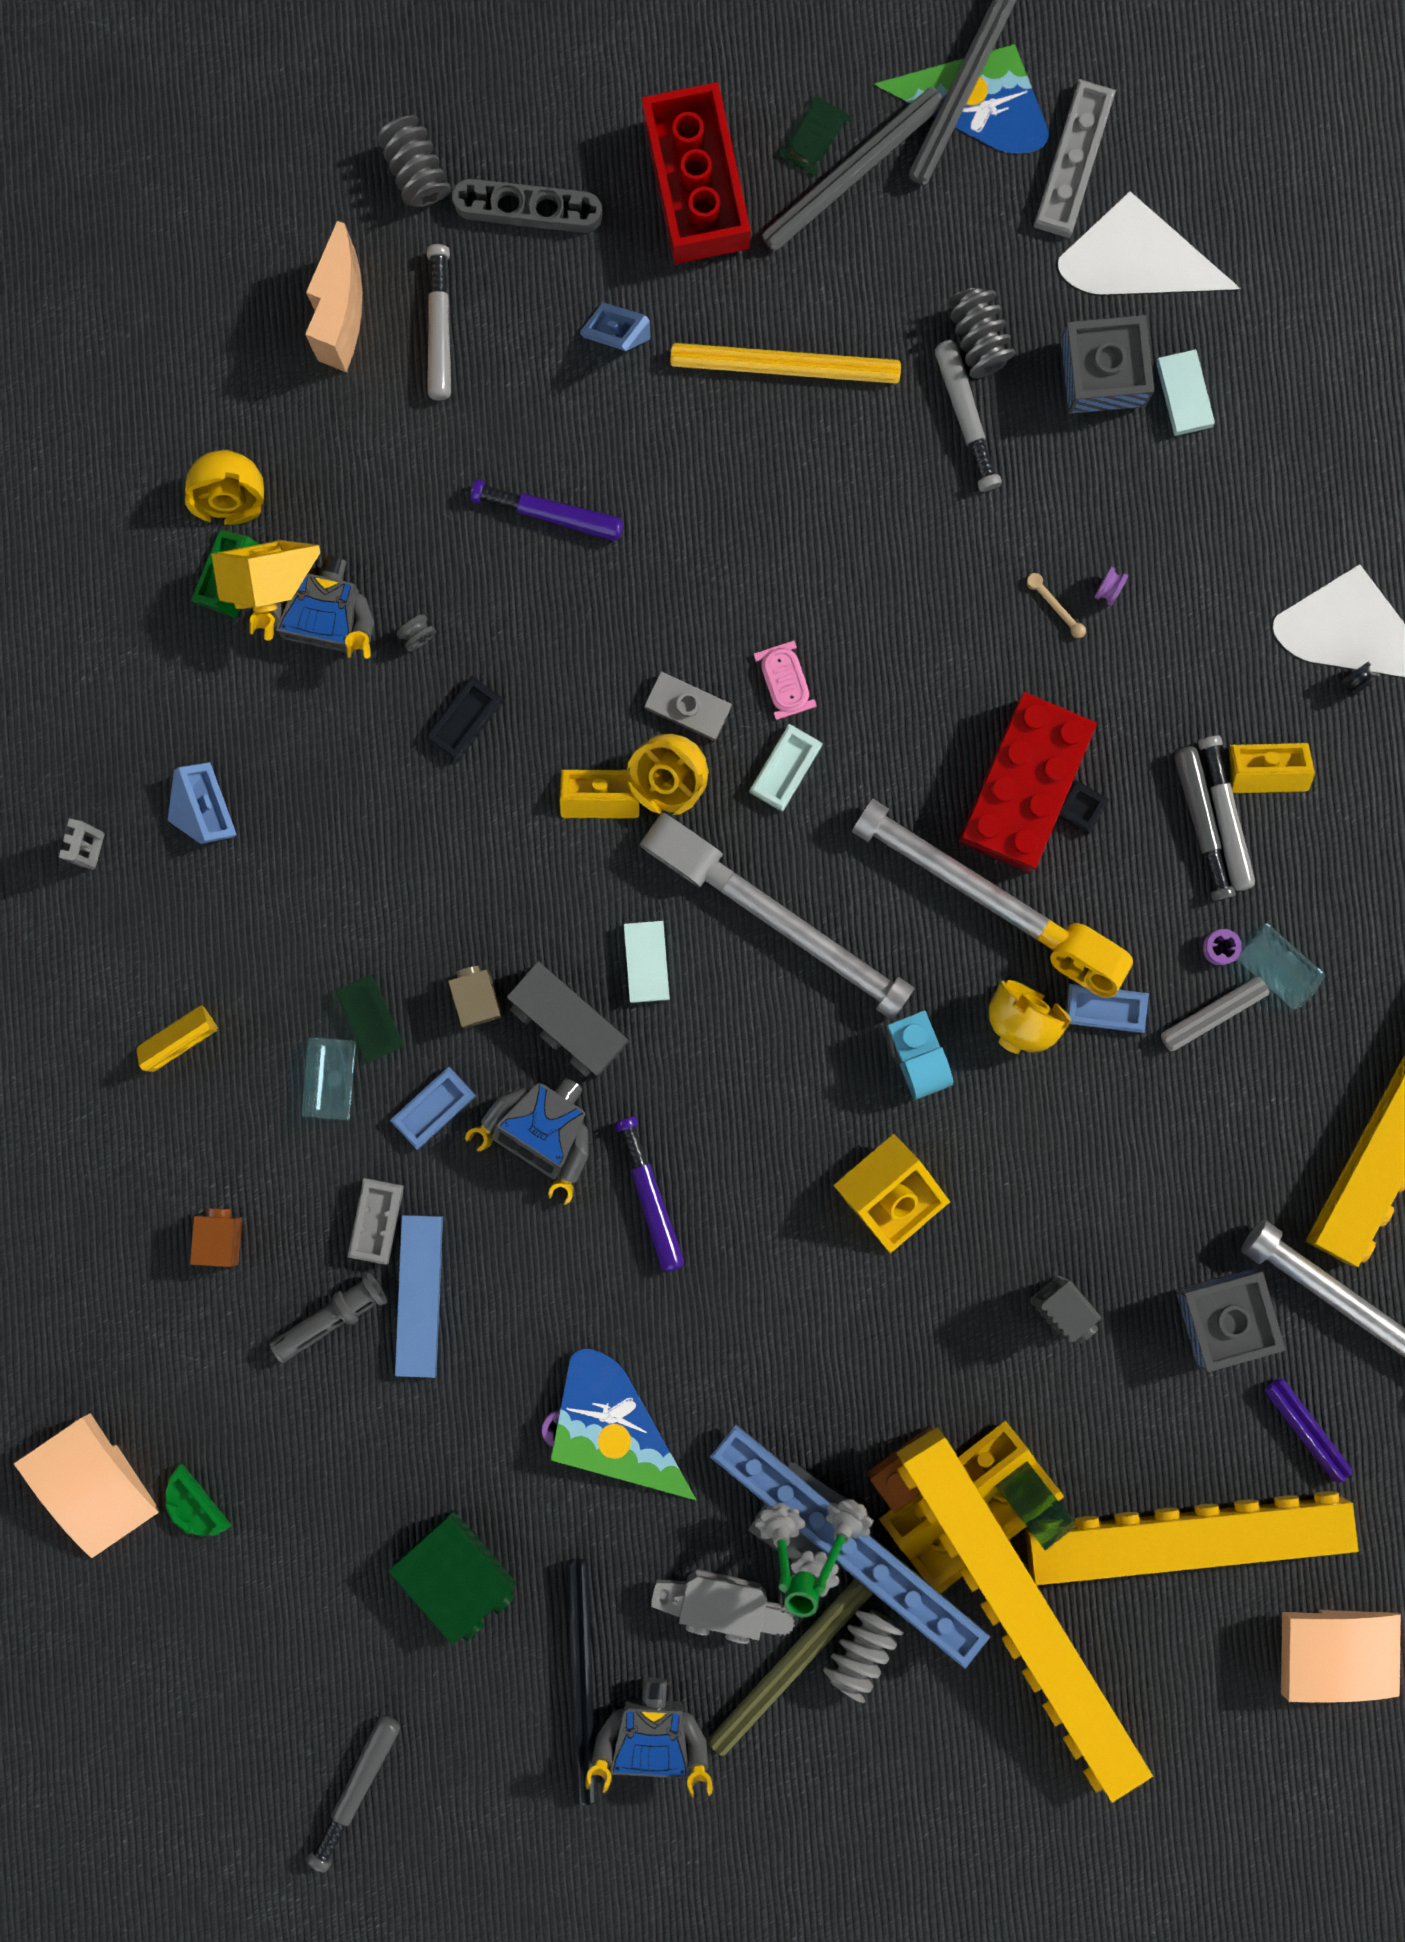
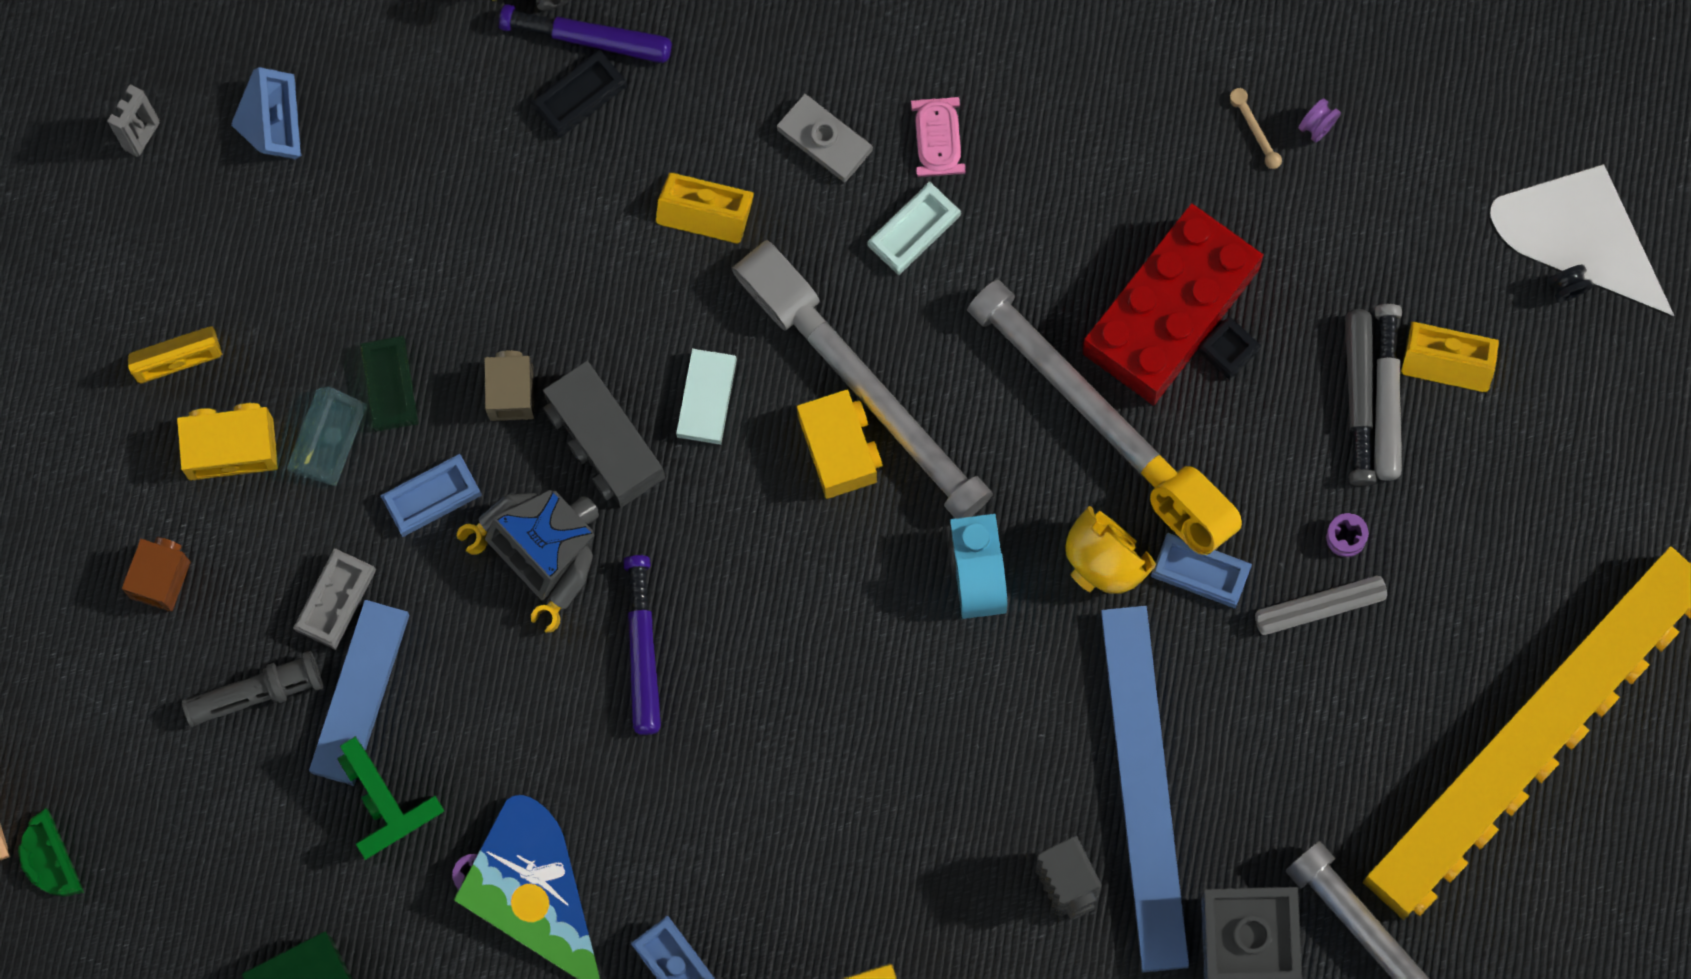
camera: 20 degrees right, 10 degrees down
(244, 1108) = (227, 442): none -> yellow brick
(460, 663) = (602, 37): none -> dark purple piece
(465, 1390) = (381, 802): none -> green bracket
(668, 774) = (781, 198): yellow cylinder -> none
(772, 977) = (838, 443): none -> yellow brick
(892, 1193) = (910, 709): yellow slope -> none
(1105, 1209) = (1144, 789): none -> medium blue tile
(1281, 967) = (1408, 572): clear light blue slope -> none

